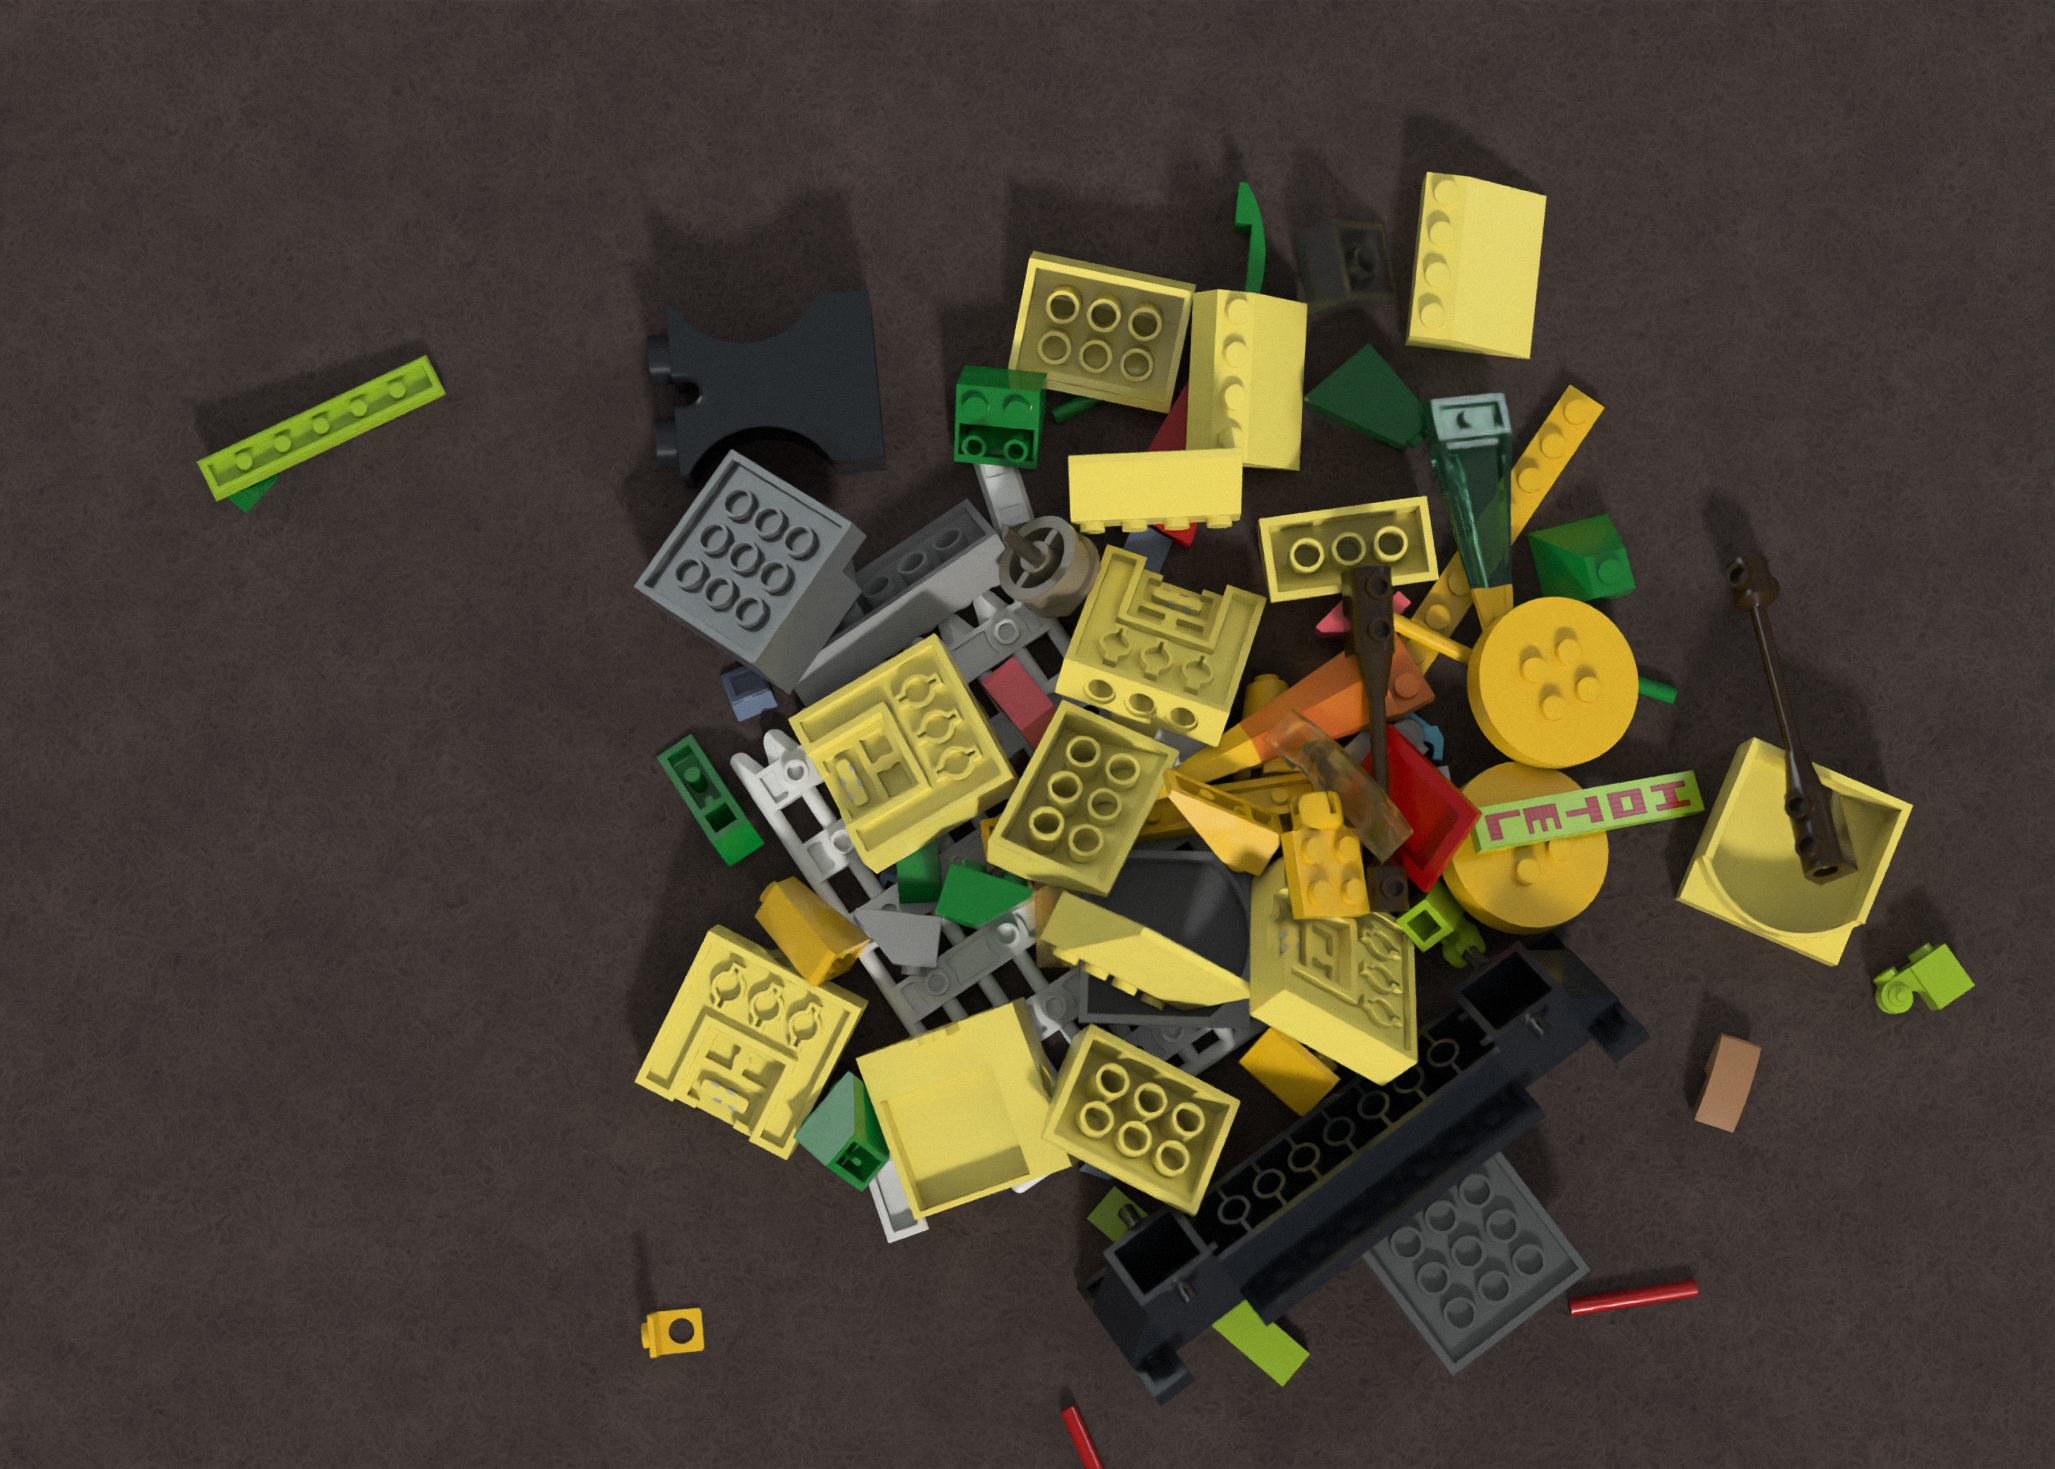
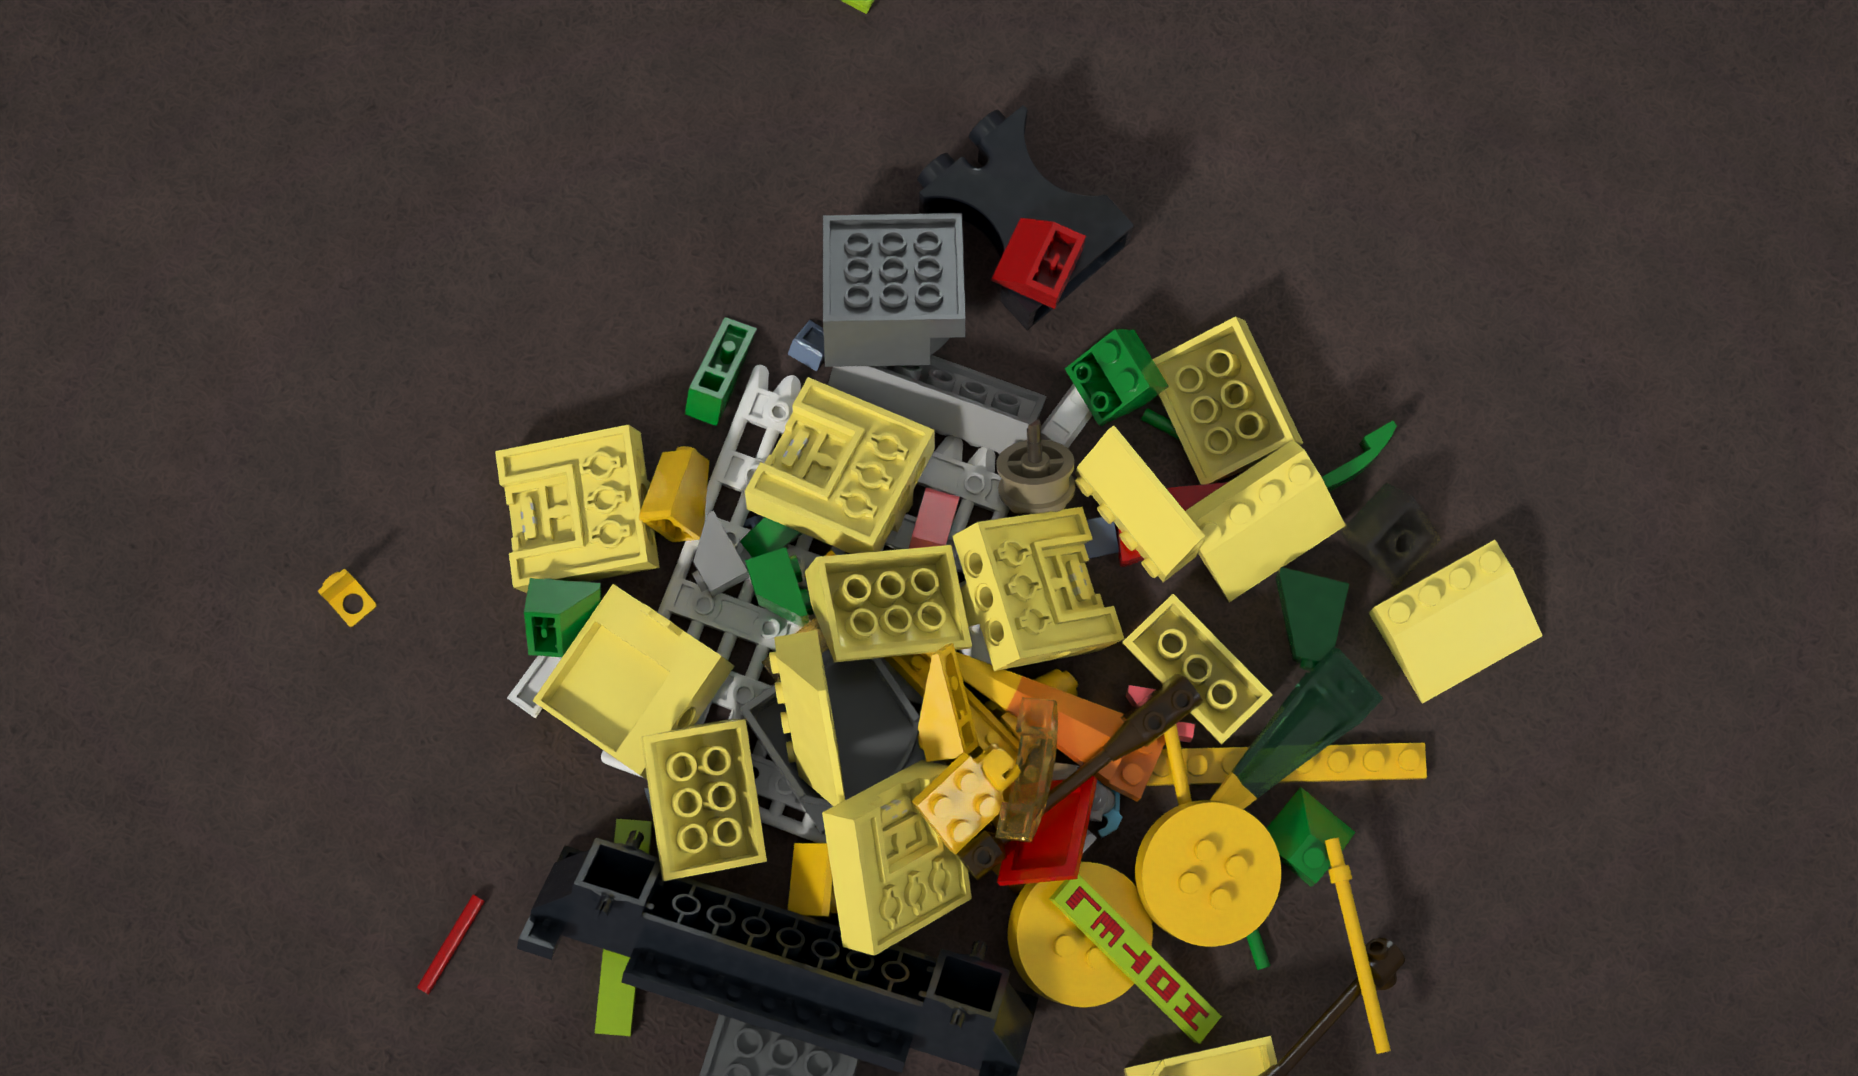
camera: 50 degrees right, 5 degrees down
(840, 407) = (1039, 260): none -> red slope
(1439, 918) = (990, 909): lime brick -> none
(1646, 559) = (1340, 876): none -> yellow bar

